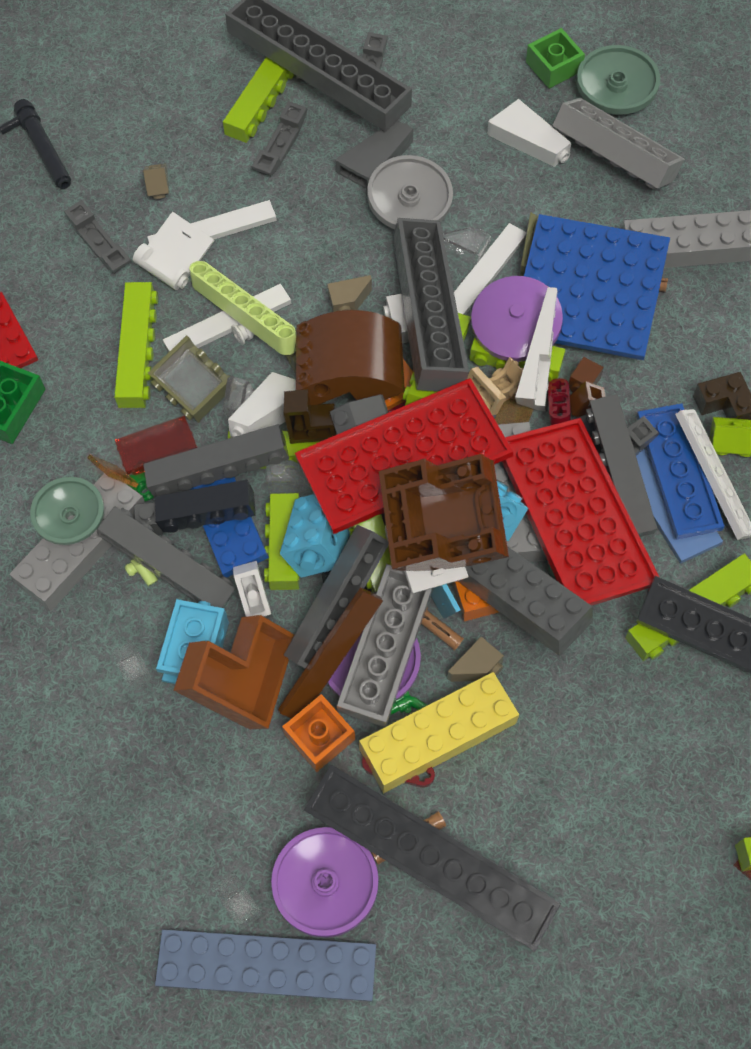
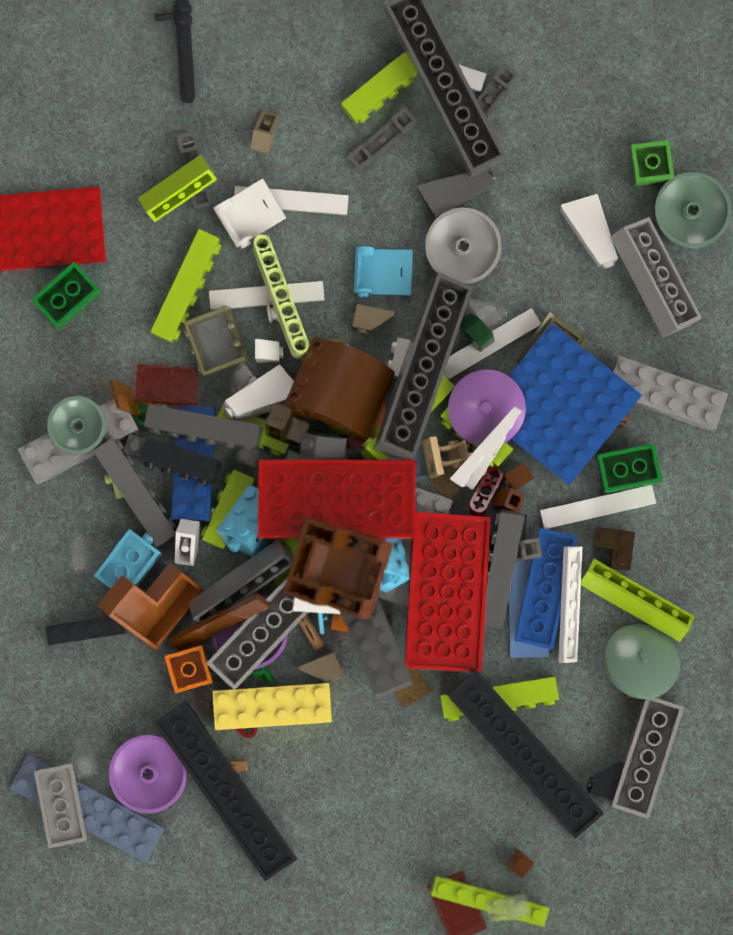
camera: 20 degrees right, 20 degrees up
(86, 255) = (177, 188): none -> lime brick
(172, 744) = (83, 630): none -> black brick
(230, 973) = (60, 805): none -> light grey plate
(252, 365) = (268, 351): none -> white slope
(338, 252) = (381, 273): none -> medium azure door
(468, 261) = (476, 332): none -> dark green slope
(589, 646) = (416, 690): none -> clear orange piece
(685, 372) = (597, 507): none -> white tile
(695, 320) = (628, 468): none -> green brick

